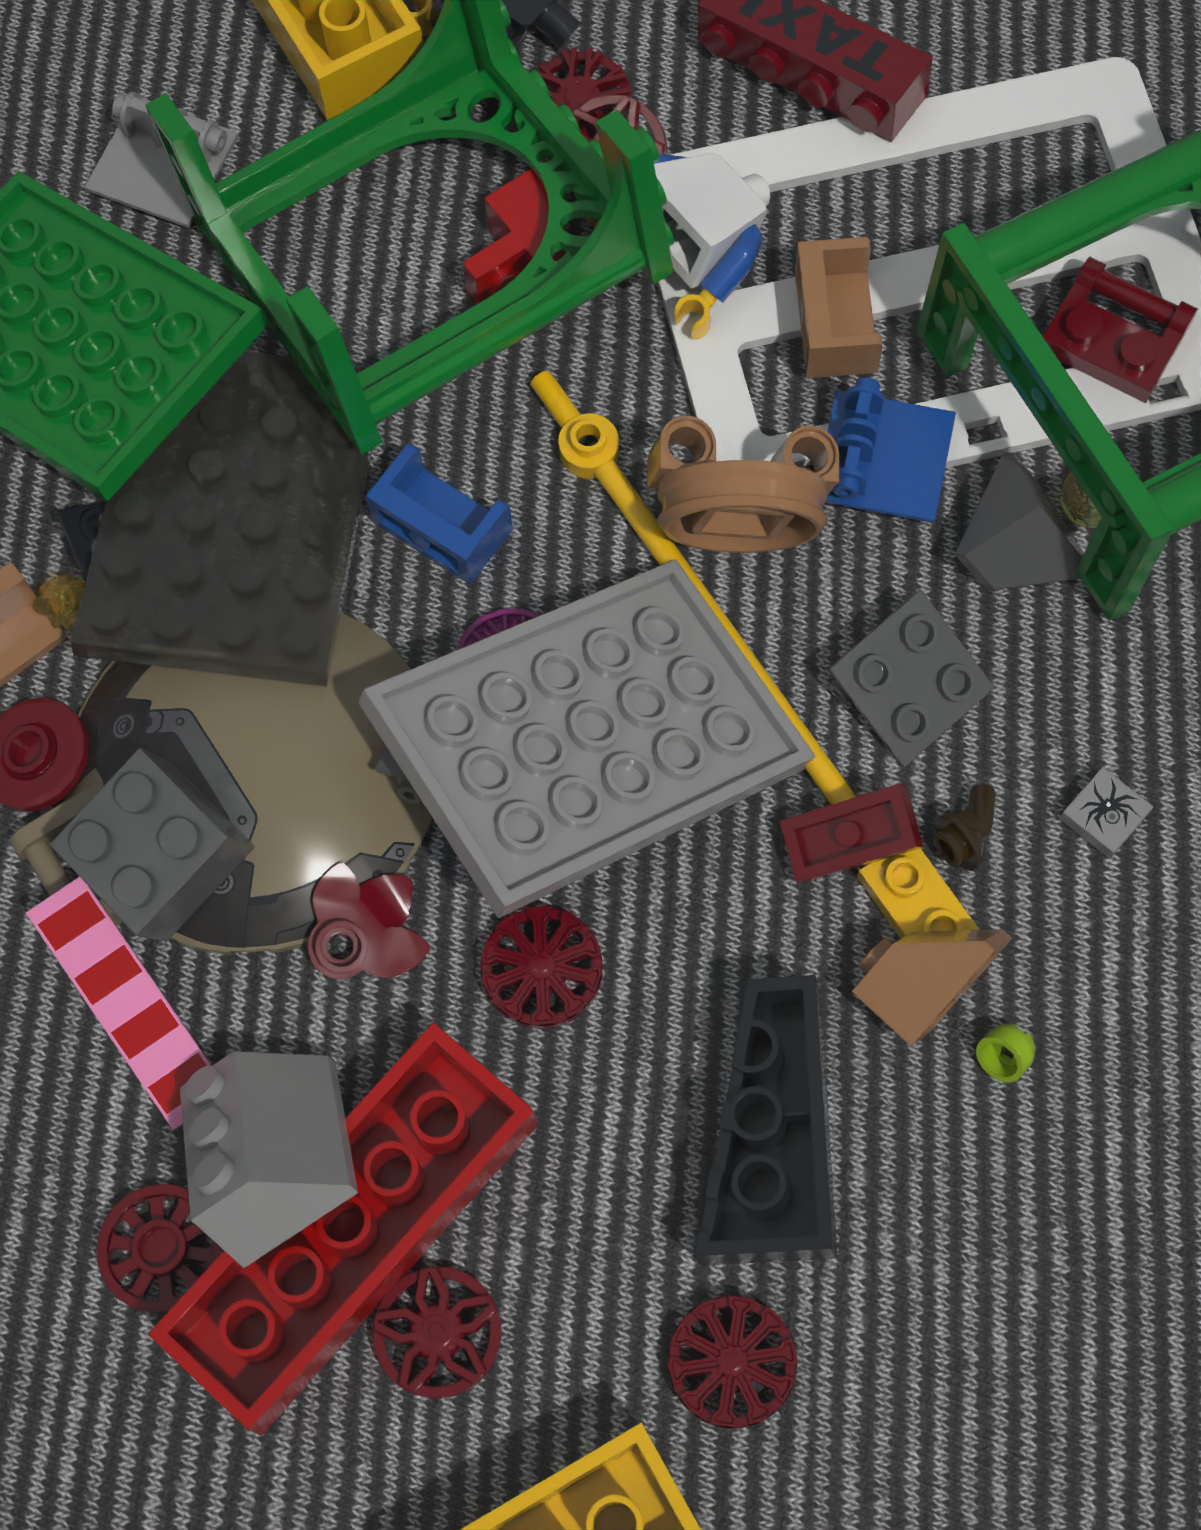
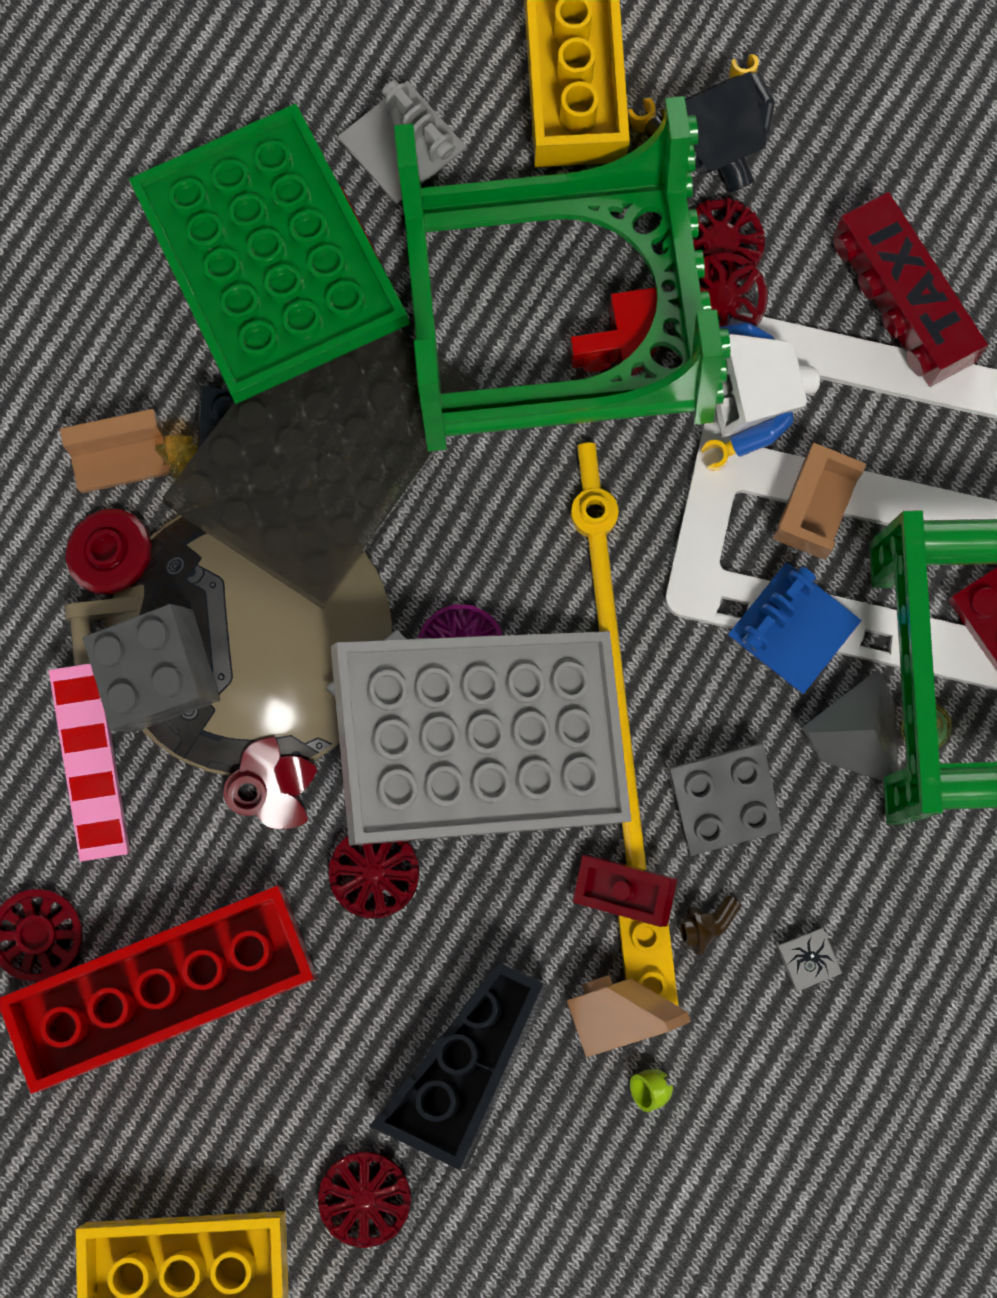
camera: 20 degrees right, 10 degrees up
(264, 1148) = (127, 916): light grey slope -> none
(437, 517) = (463, 515): blue panel -> none
(437, 1332) = (186, 1082): dark red wheel -> none
(741, 502) = (696, 637): medium nougat piece -> none

